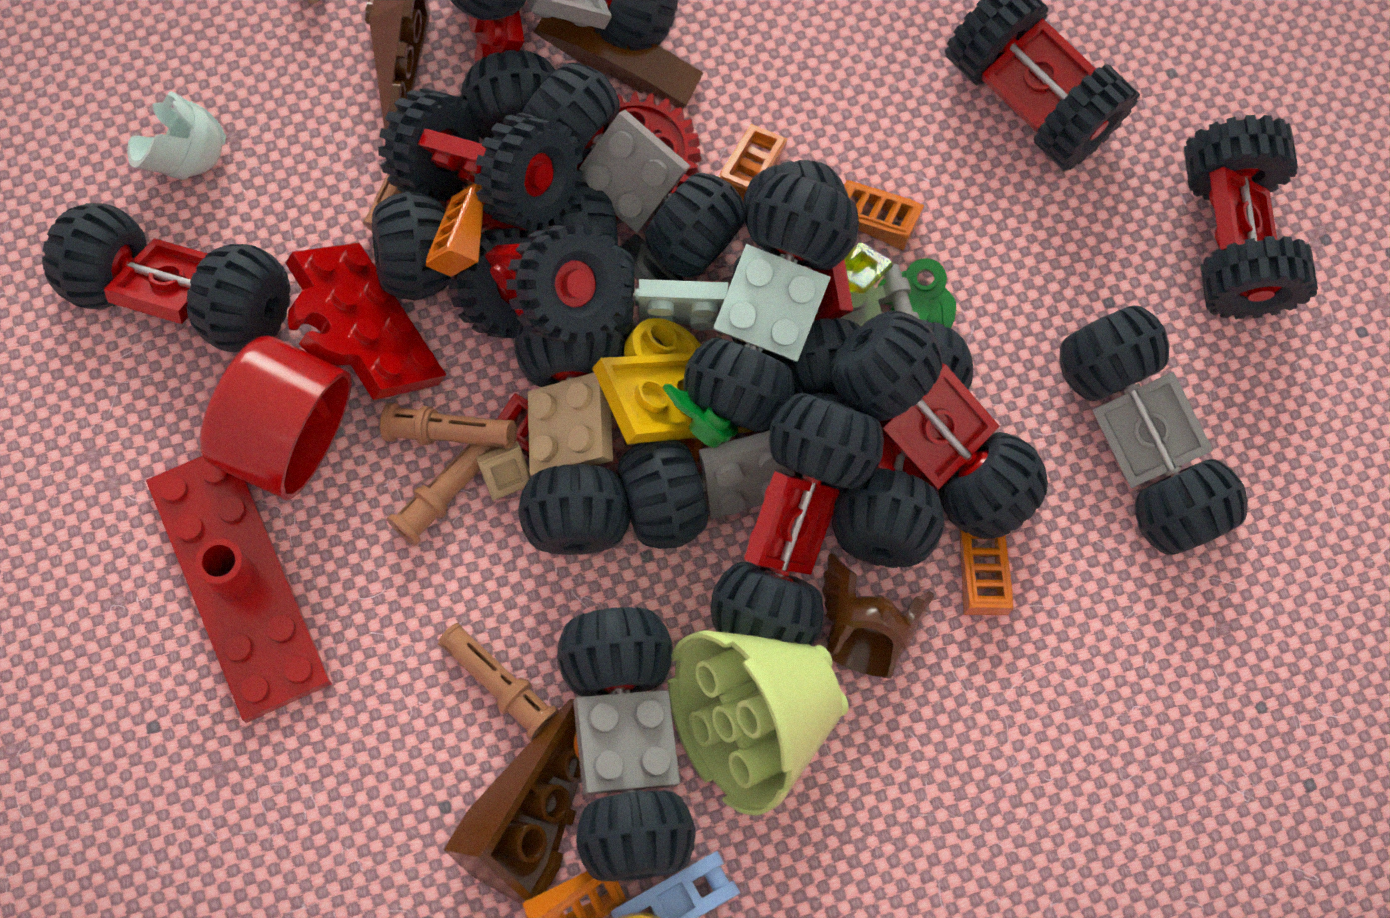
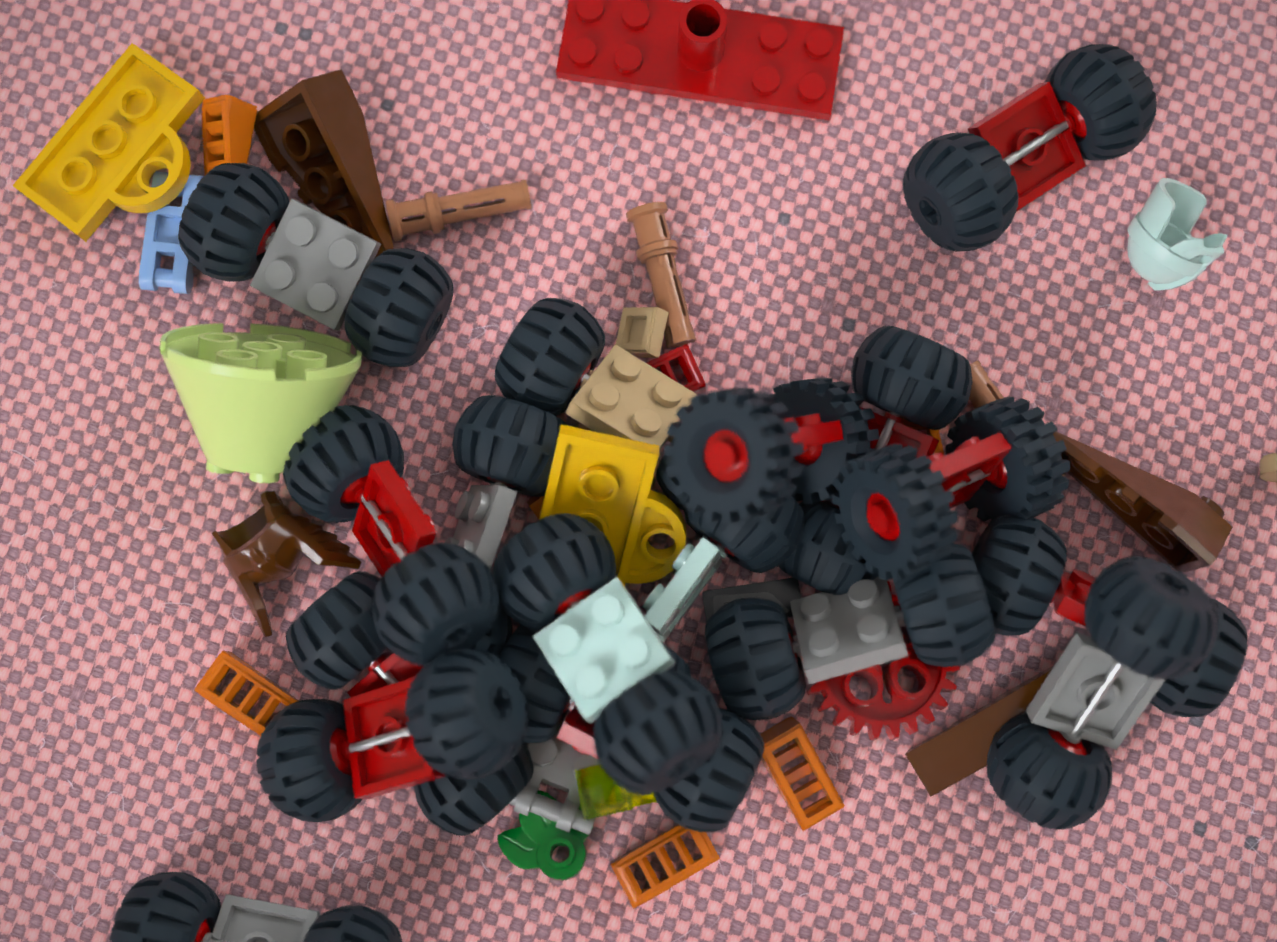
camera: 130 degrees right, 10 degrees up
(274, 416) = (814, 148): red piece -> none
(359, 322) = (869, 284): red plate -> none
(428, 426) = (725, 292): nougat pin -> none
(459, 234) = (877, 409): orange slope -> none
(705, 424) = (532, 506): green plate -> none

